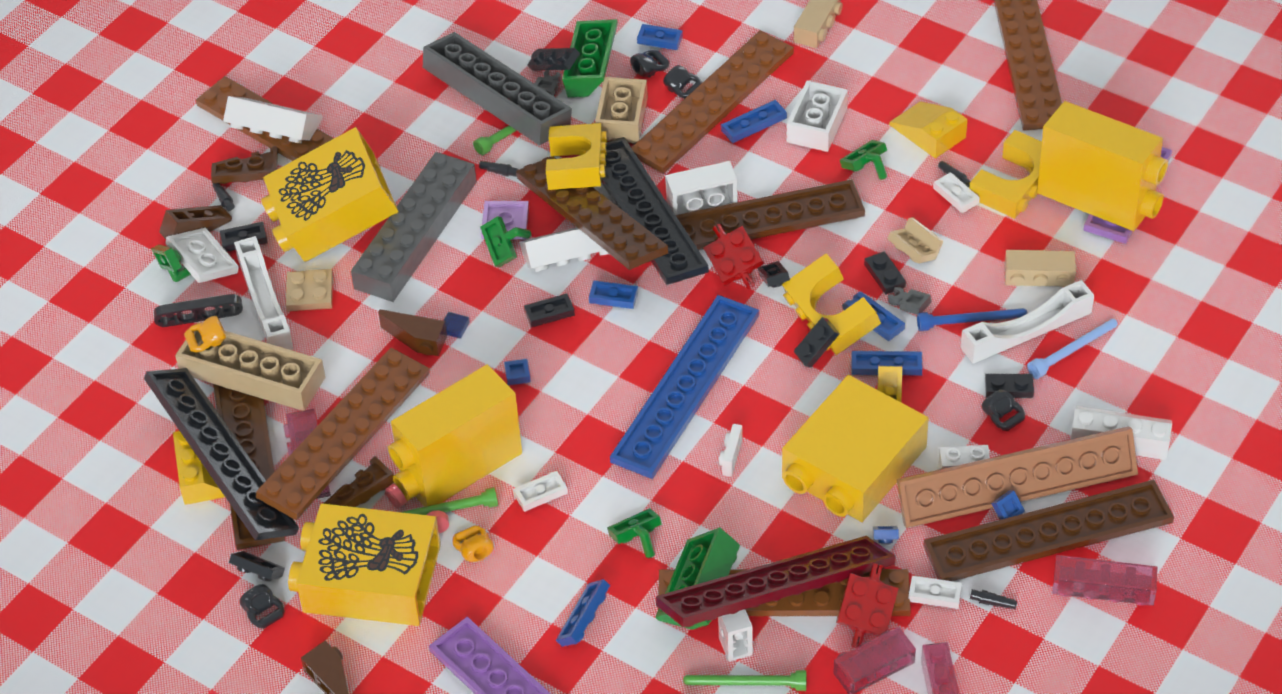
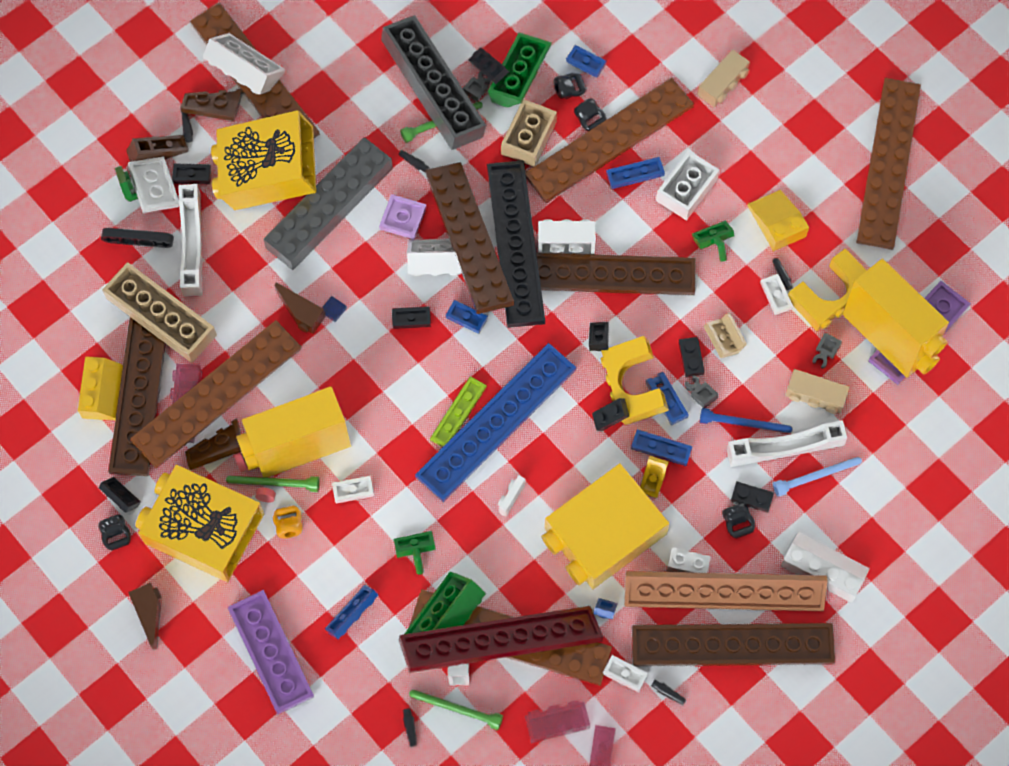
camera: 15 degrees right, 20 degrees up
(210, 331) = (133, 278): light orange piece -> none
(218, 451) = (113, 386): black plate -> none
(309, 290) = (229, 240): tan plate -> none
(499, 240) = (390, 240): green plate -> none
(517, 371) = (368, 370): blue plate -> none
(579, 171) = (476, 195): yellow arch -> none
(637, 387) = (458, 412): none -> lime tile
(733, 256) = (573, 308): red plate -> none
(867, 605) = (567, 673): red plate -> none
(1008, 505) = (709, 613): blue plate -> none
(1033, 228) = (828, 348): none -> dark grey plate
(1105, 580) = (759, 703): clear pink brick -> none

